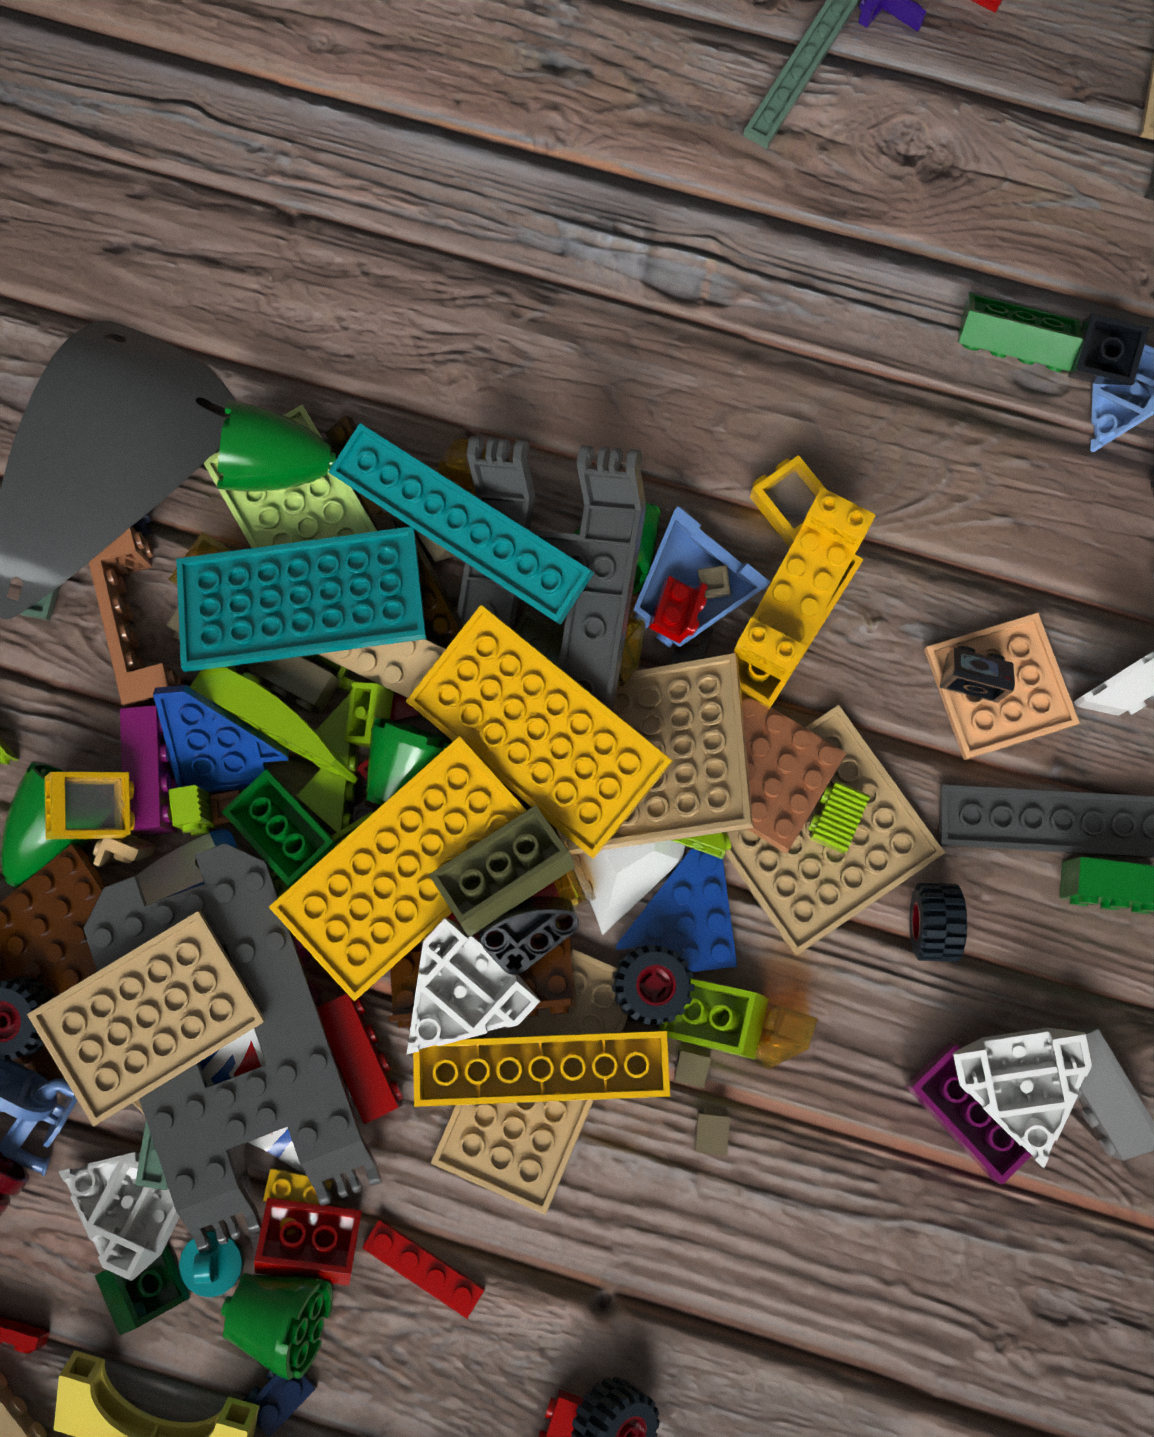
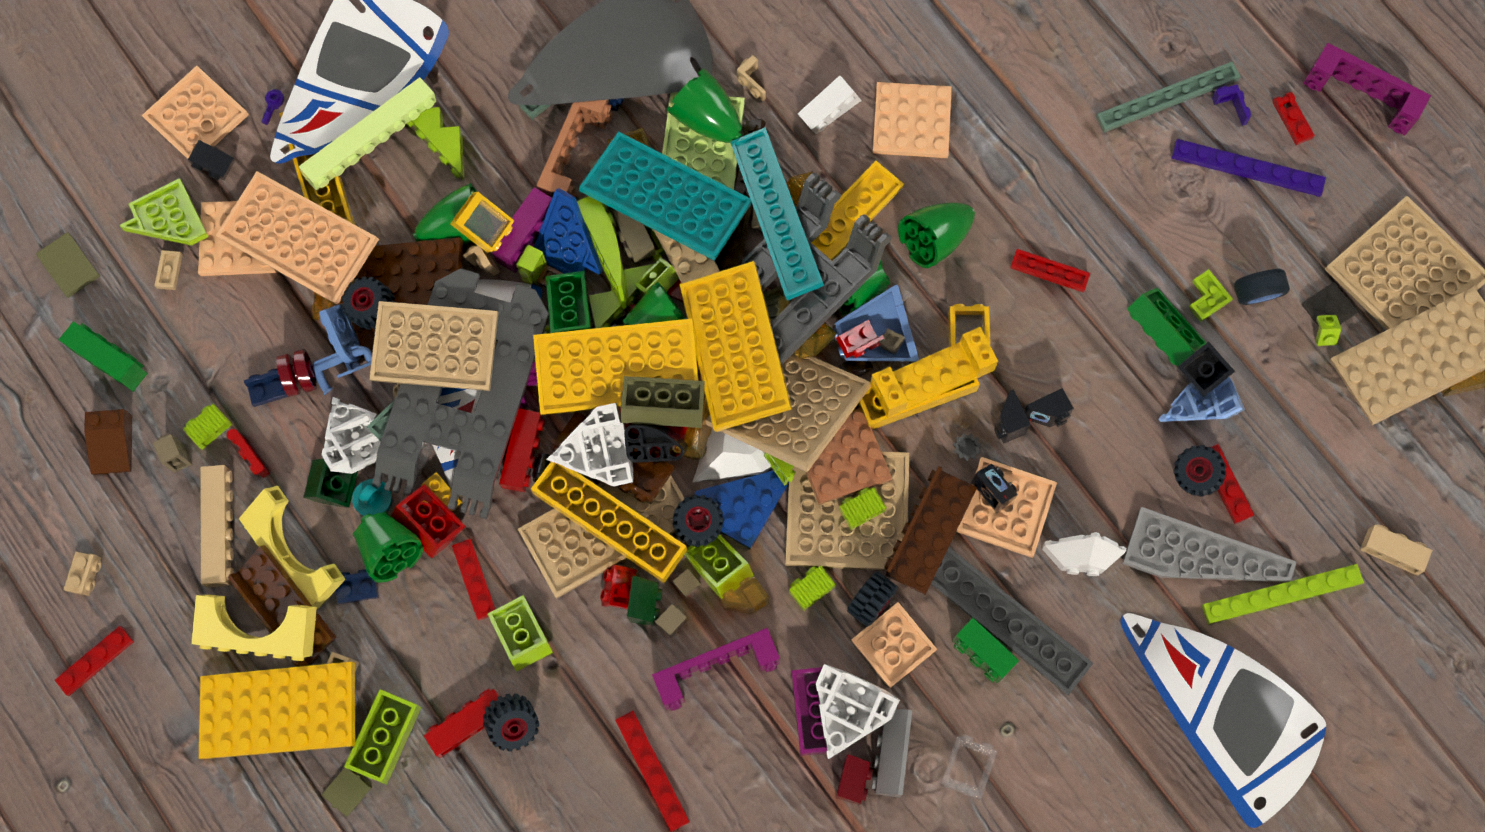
camera: 35 degrees right, 5 degrees down
(276, 367) = (746, 68): none -> tan bracket
(400, 1062) = (540, 466): none -> black cone
(415, 340) = (829, 105): none -> white wedge
(528, 290) = (912, 120): none -> light nougat plate
(535, 1296) = (519, 633): none -> lime slope
(548, 425) = (865, 196): none -> yellow plate
(613, 1140) = (617, 586): none -> red bracket
(660, 1136) = (643, 601): none -> dark green slope
(664, 400) = (935, 231): none -> green cylinder
(766, 1215) = (759, 642): none -> magenta plate
(831, 1341) = (652, 771): none -> red plate
(832, 359) = (1050, 270): none -> red plate
(849, 960) = (812, 587): none -> lime brick
(901, 646) = (967, 446): none -> dark grey piece
(928, 573) = (1012, 419): none -> black slope
(939, 784) = (930, 531): none -> reddish brown bracket
(963, 76) = (1248, 167): none -> dark purple plate
(968, 528) = (1050, 409): none -> black slope
(1002, 958) = (893, 645): none -> light nougat plate
(1043, 256) = (1213, 296): none -> lime plate
(1082, 1165) = (853, 780): none -> dark red slope
(1095, 205) = (1261, 286): none -> black wheel

